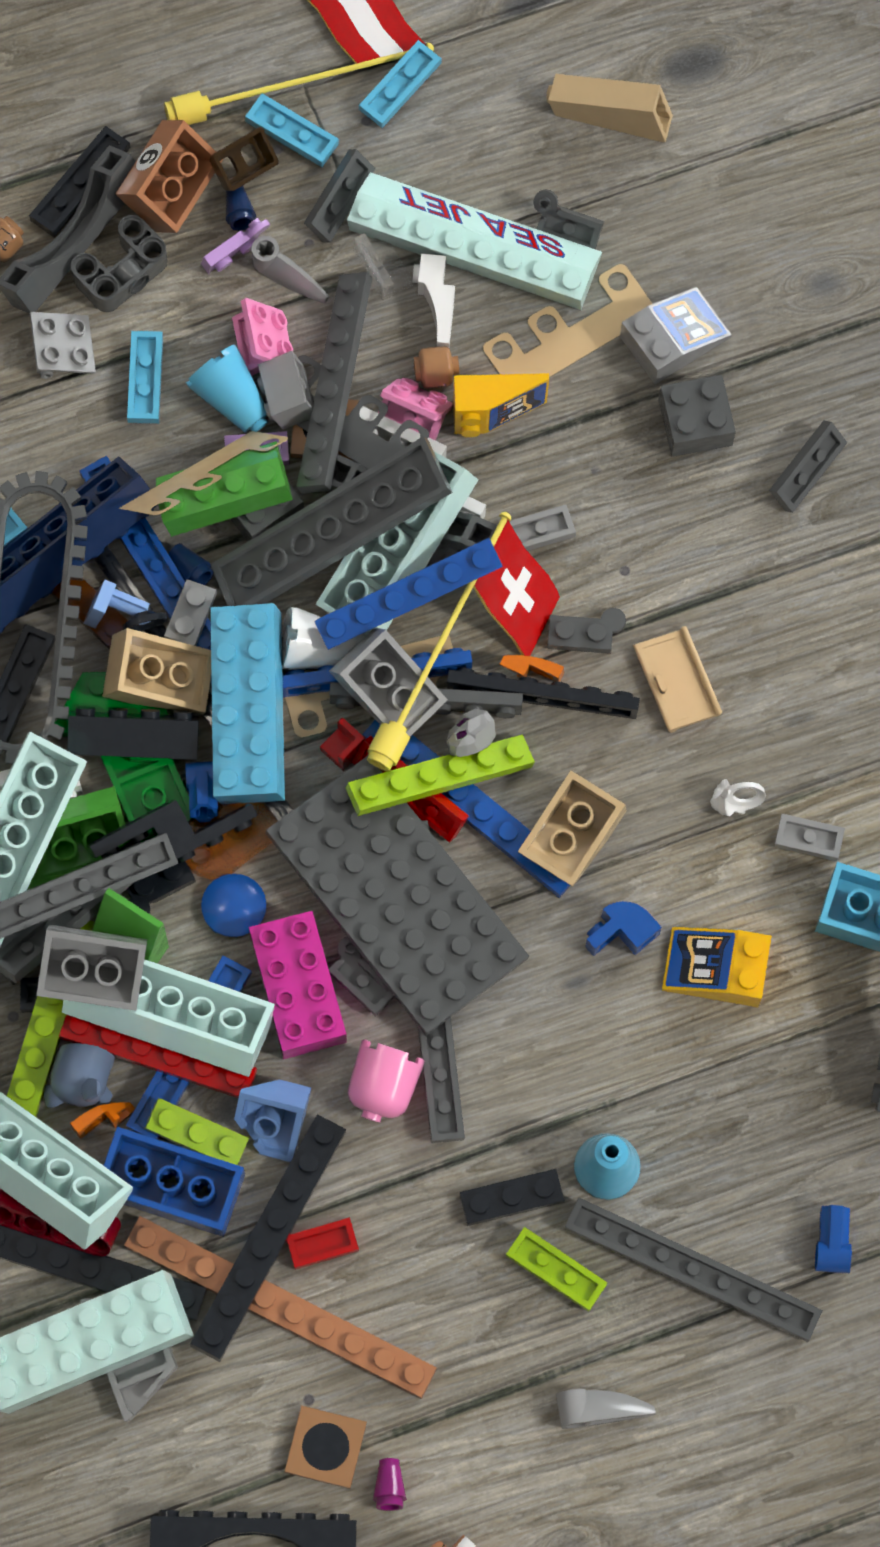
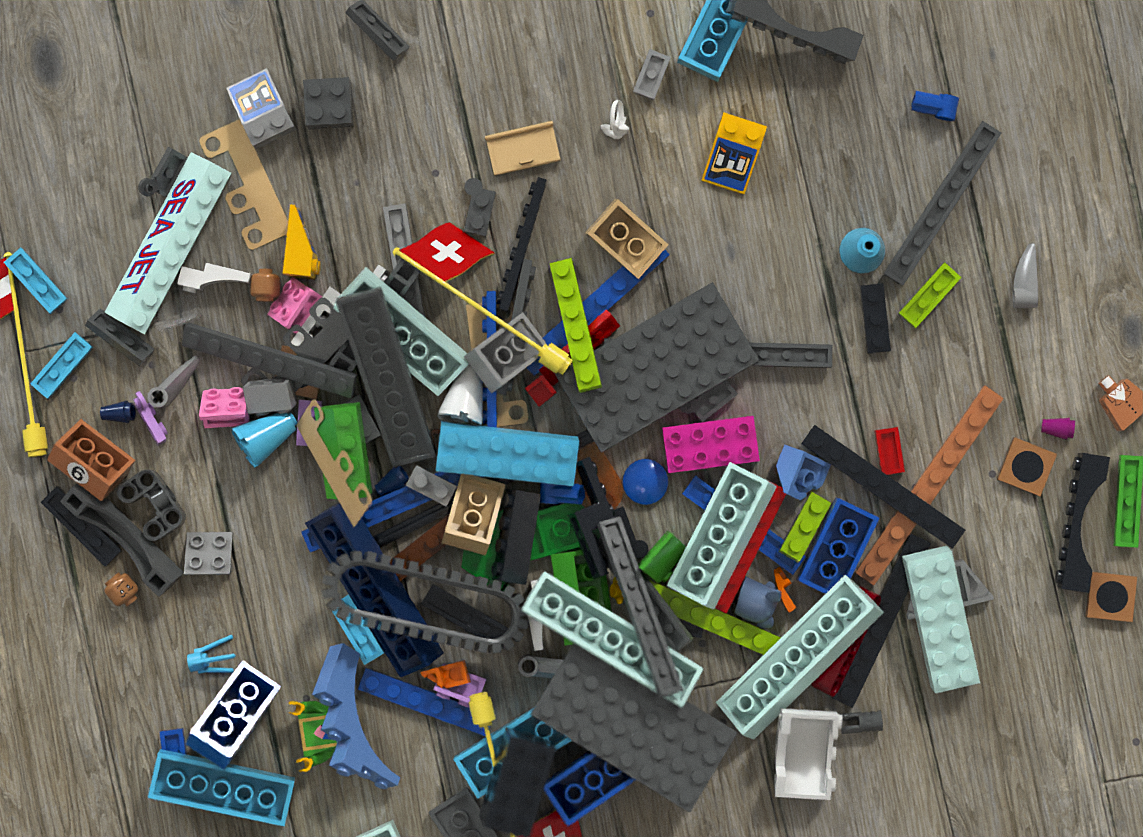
camera: 75 degrees left, 15 degrees up
(91, 967) = (692, 584): light grey slope -> none
(109, 596) = (417, 546): light blue piece -> none
(145, 377) = (242, 496): medium azure plate -> none
(265, 159) = (93, 402): dark brown piece -> none
(383, 1081) = (787, 394): bright pink cylinder -> none
(408, 593) = (446, 328): blue plate -> none
(471, 733) = (548, 299): light grey rock -> none
(523, 664) = (499, 256): orange slope -> none
(612, 104) = (75, 127): tan slope -> none
(628, 922) = (694, 212): blue brick -> none

